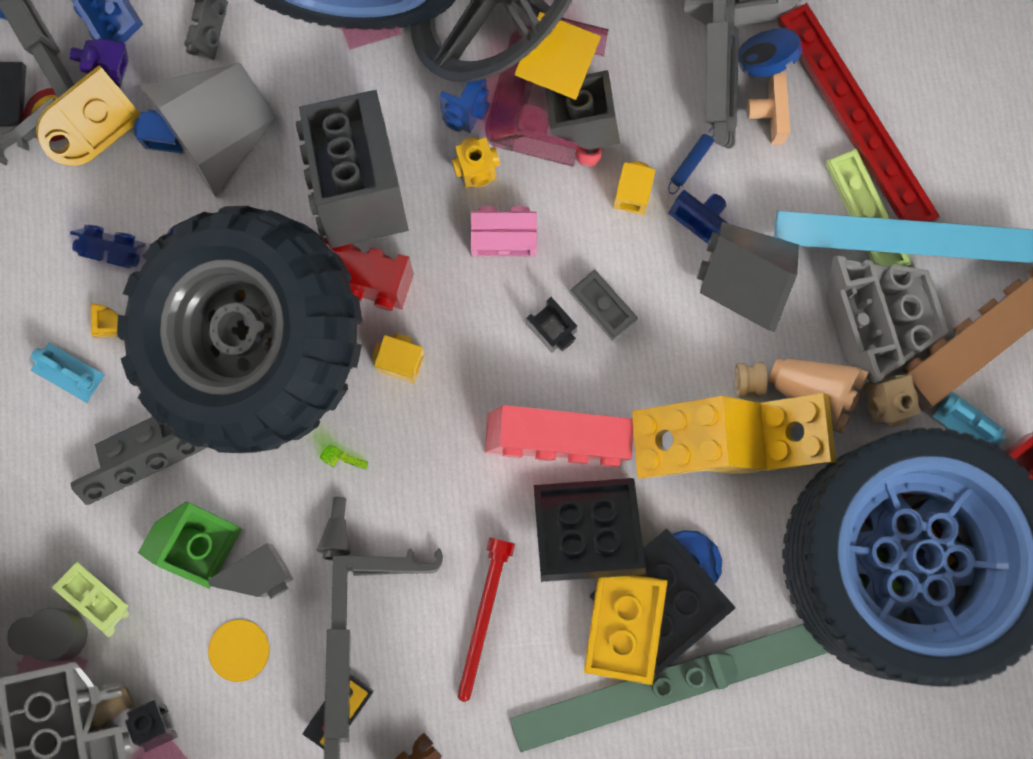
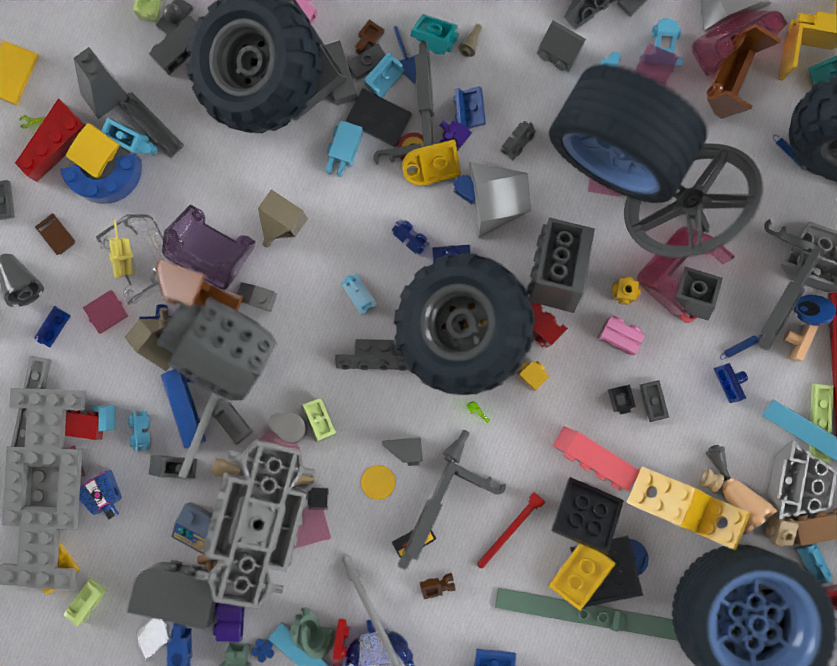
camera: 30 degrees right, 5 degrees up
(103, 321) = (390, 277): yellow tile -> none
(190, 543) = (380, 416): bright green slope -> none
(465, 111) = (630, 260): blue bracket -> none
(560, 59) = (702, 266): yellow slope -> none
(634, 187) = (703, 346): yellow brick -> none
(742, 340) = (718, 458): none -> dark grey cone
(749, 273) = (742, 427): dark grey slope -> none

